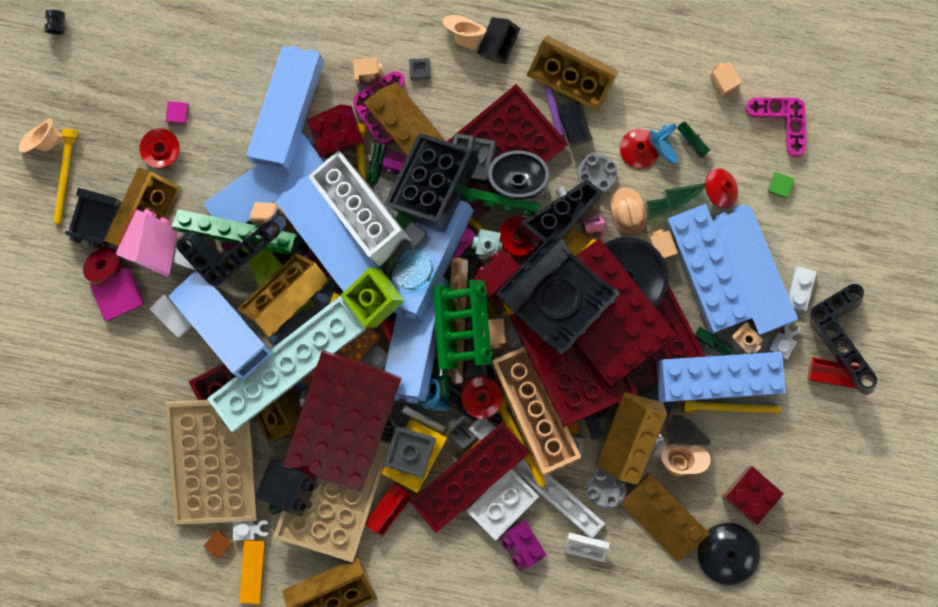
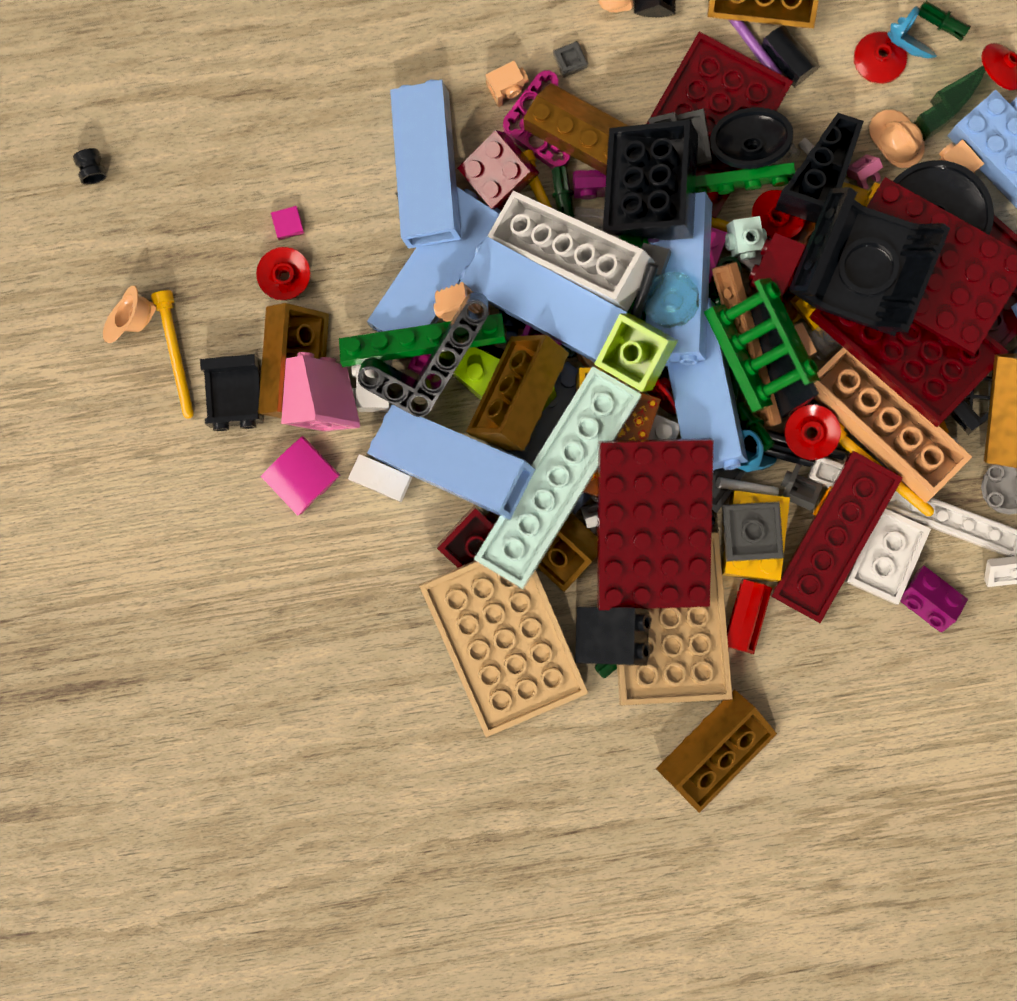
camera: 20 degrees left, 0 degrees up
(93, 263) = (260, 438): dark red tile -> none
(218, 544) = (550, 742): dark orange tile -> none
(247, 530) = (579, 710): white plate -> none
(252, 571) = (606, 760): light orange tile -> none
(598, 170) = (841, 98): light grey dish -> none

